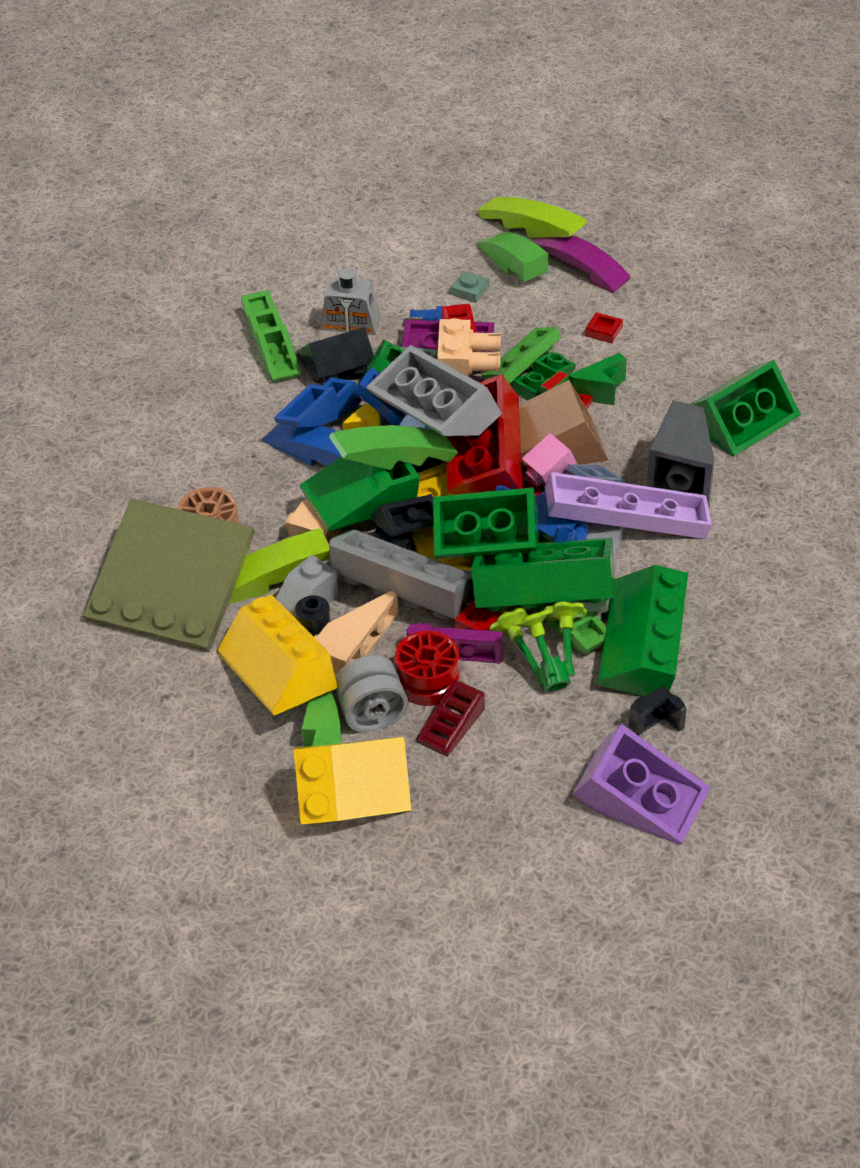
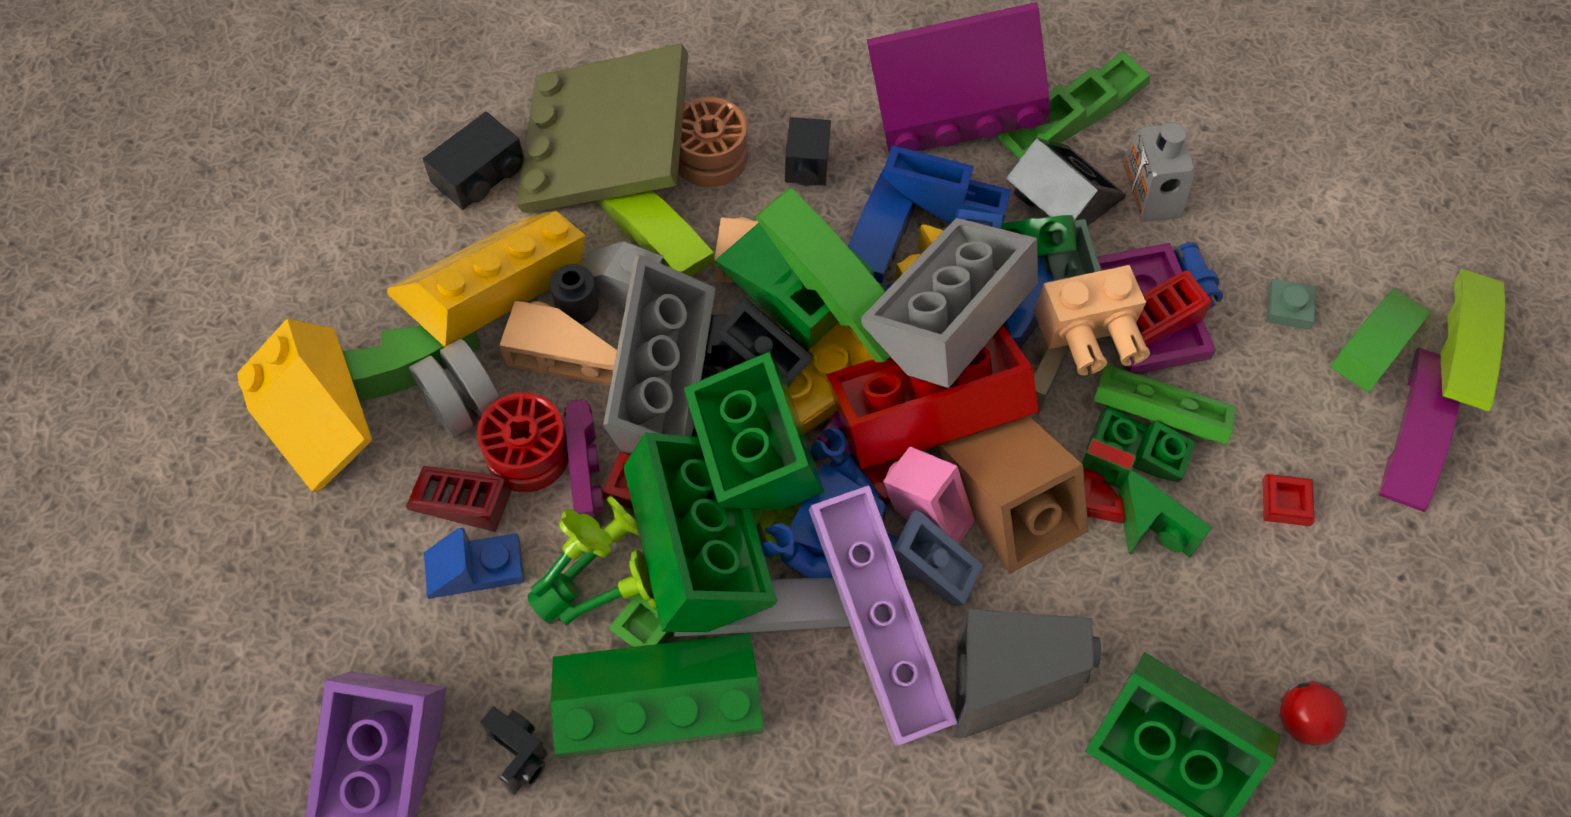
camera: 70 degrees right, 15 degrees up
(154, 662) = (474, 160): none -> black brick
(246, 470) = (807, 151): none -> black brick
(247, 367) = (962, 79): none -> magenta slope
(509, 721) = (474, 565): none -> blue slope
(741, 353) = (1313, 713): none -> red piece

